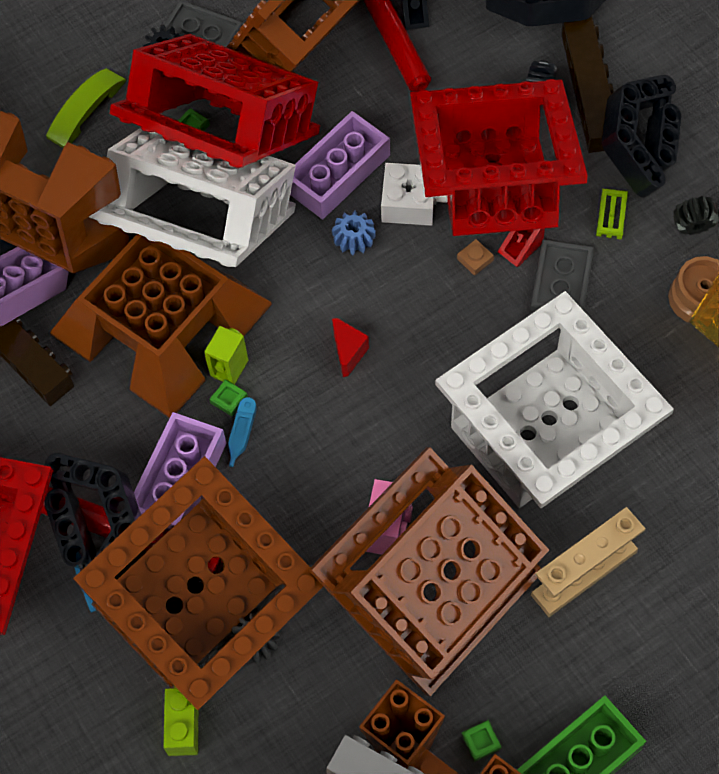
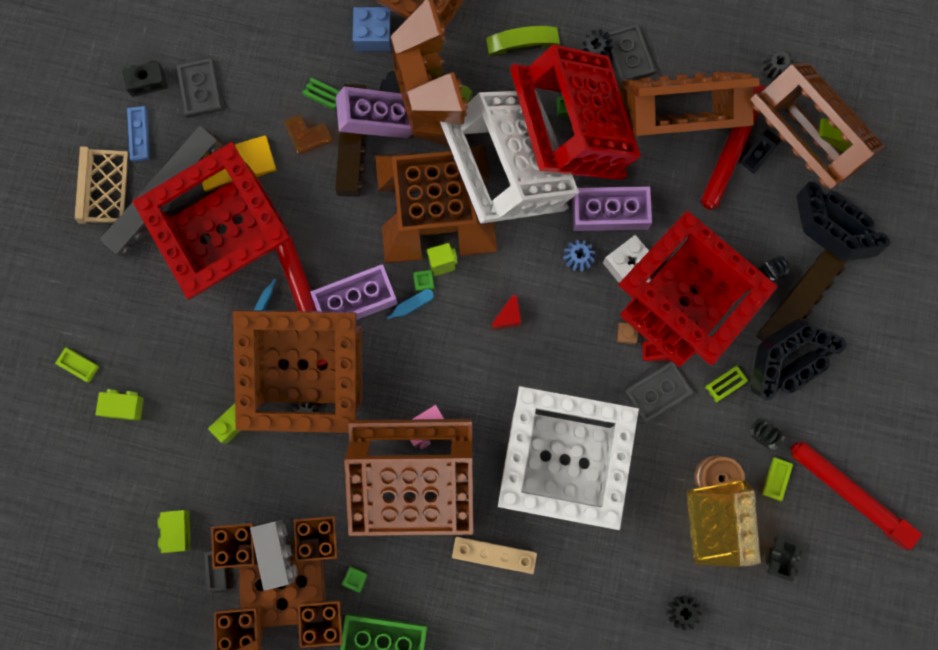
camera: 45 degrees right, 15 degrees up
(72, 511) = (282, 268): black piece -> none

